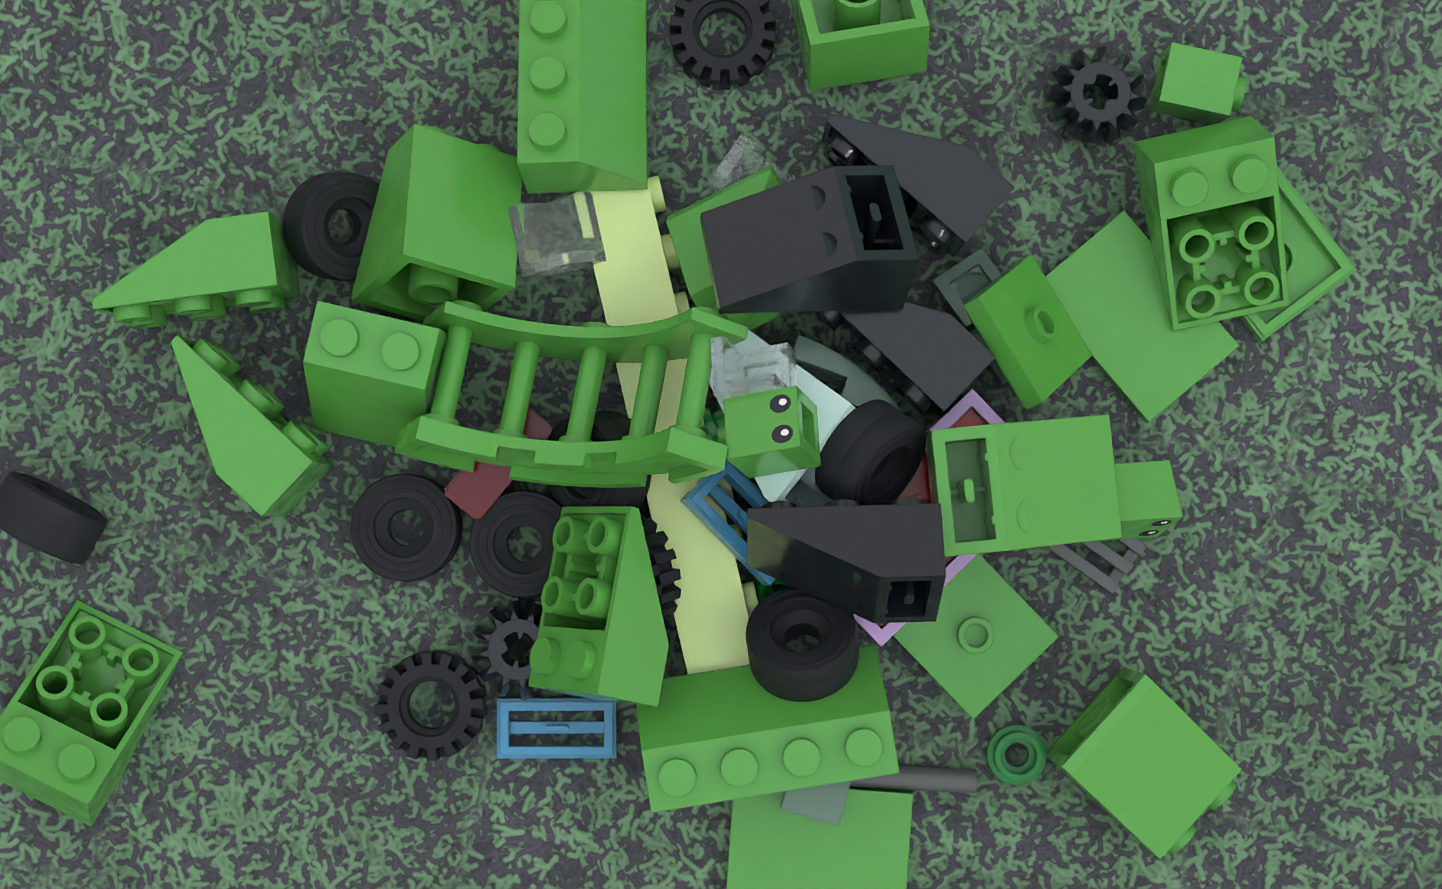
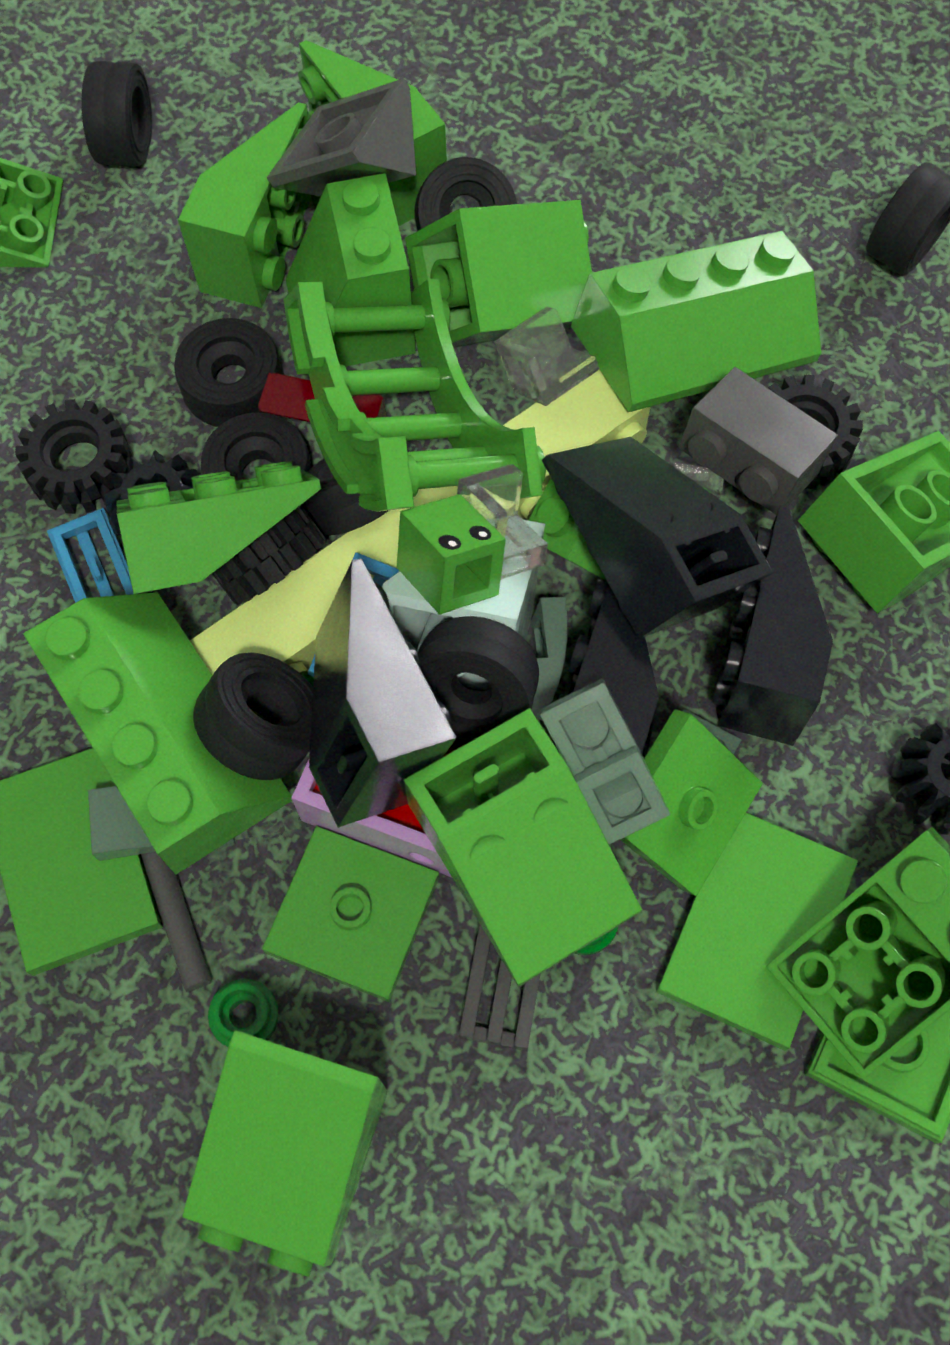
camera: 65 degrees right, 20 degrees down
(256, 317) = (350, 141): none -> dark grey slope
(740, 96) = (756, 440): none -> dark grey brick
(988, 387) = (605, 761): none -> sand green slope
(1146, 499) = (568, 1004): bright green brick -> none

